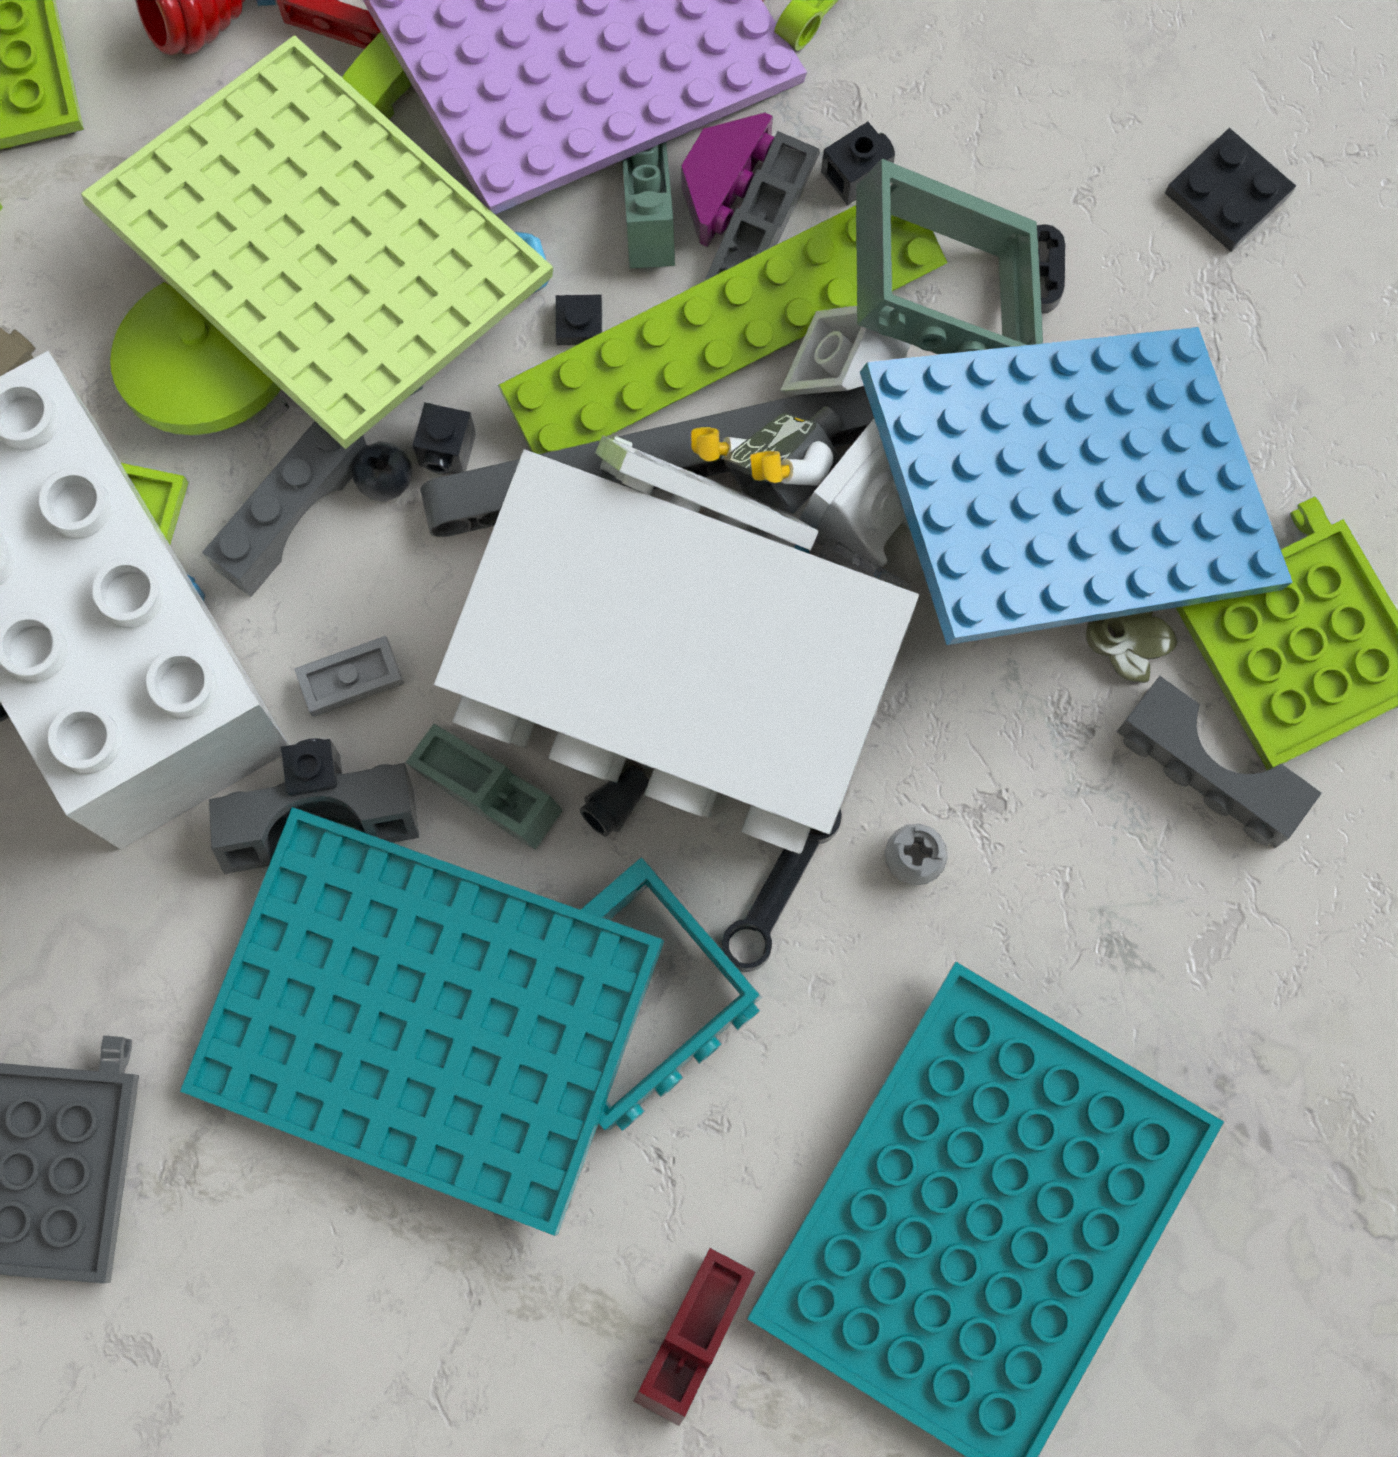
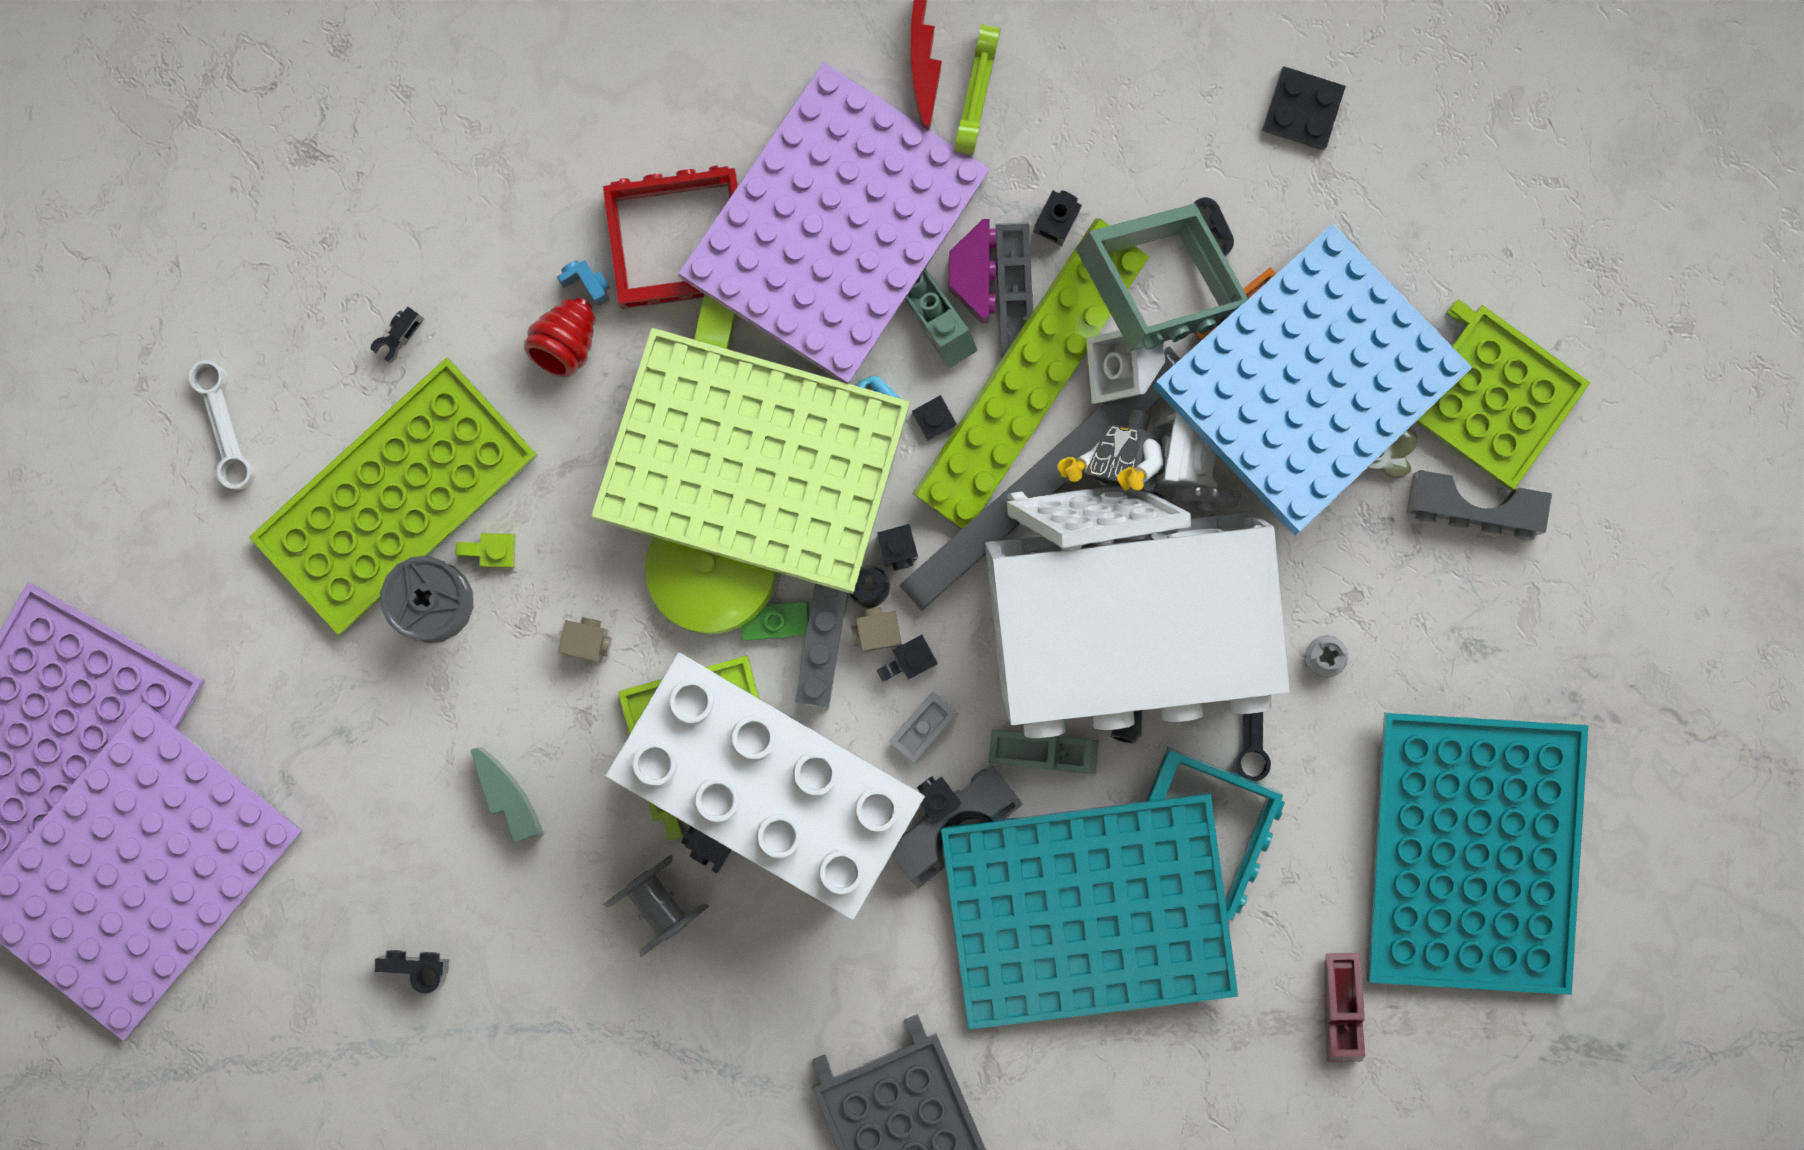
camera: 30 degrees left, 10 degrees up
(238, 455) = (778, 622): none -> bright green plate
(361, 528) = (876, 630): none -> dark tan brick
(386, 587) = (911, 659): none -> black plate

